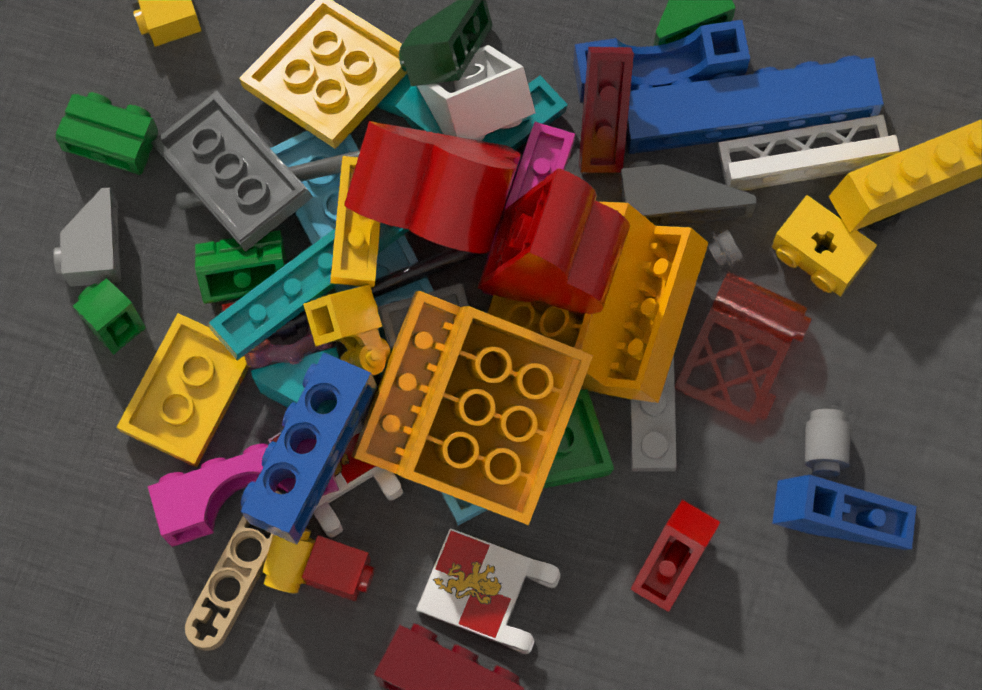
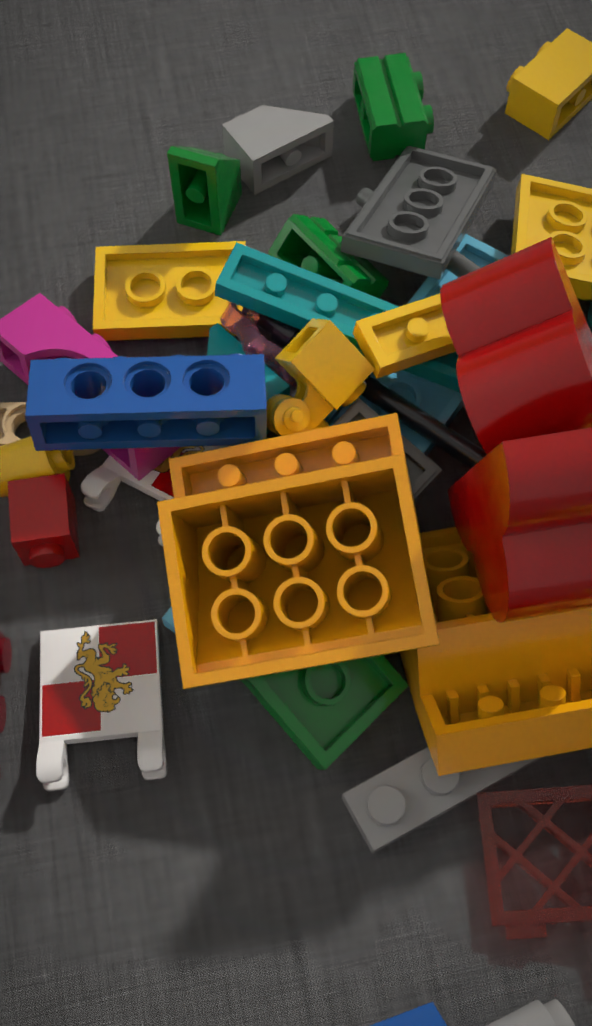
camera: 60 degrees right, 10 degrees down
(675, 555) = (258, 909): red slope -> none

